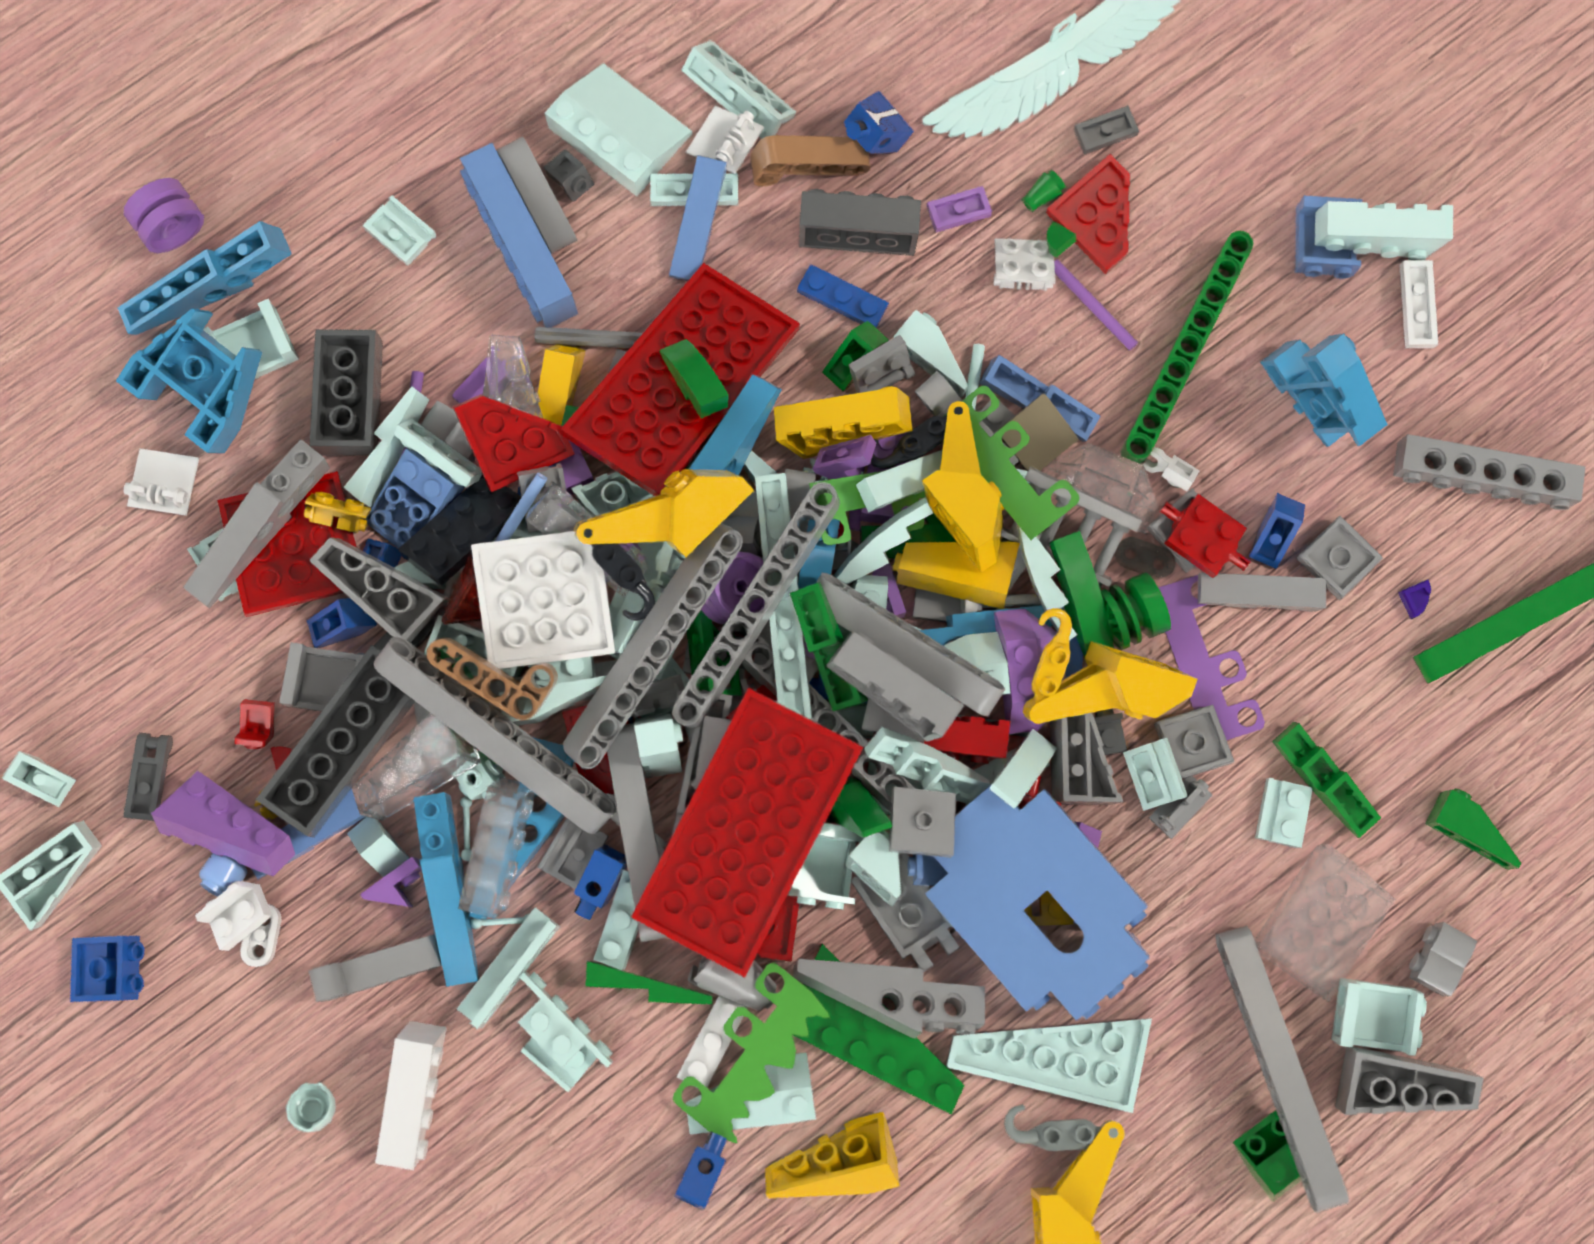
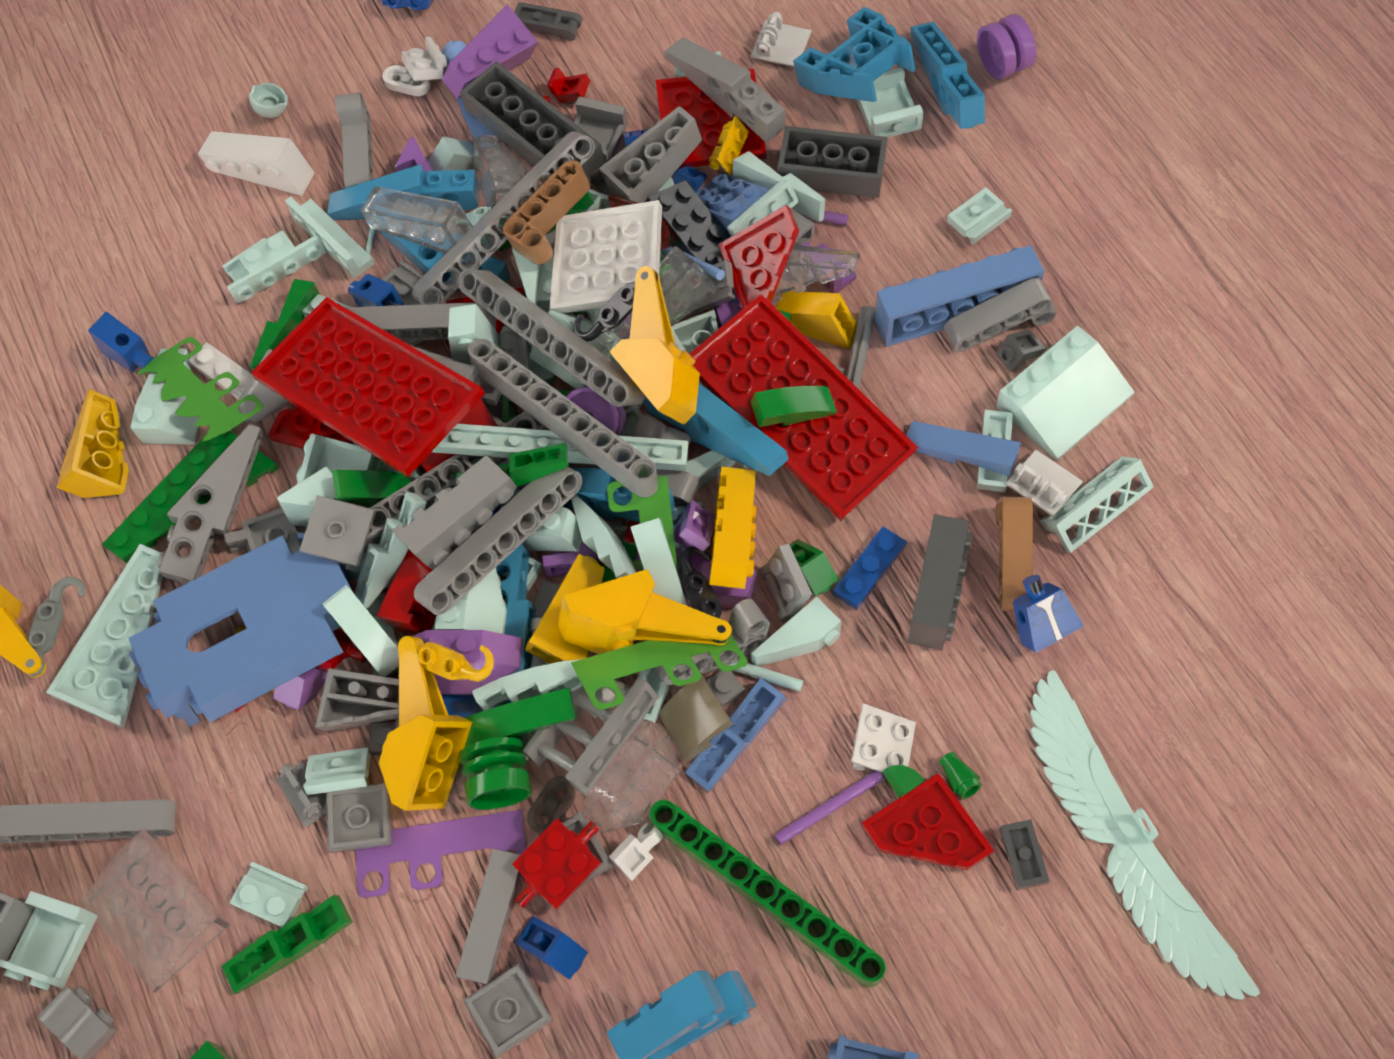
camera: 110 degrees right, 15 degrees down
(959, 209) = (948, 688): medium lavender plate -> none

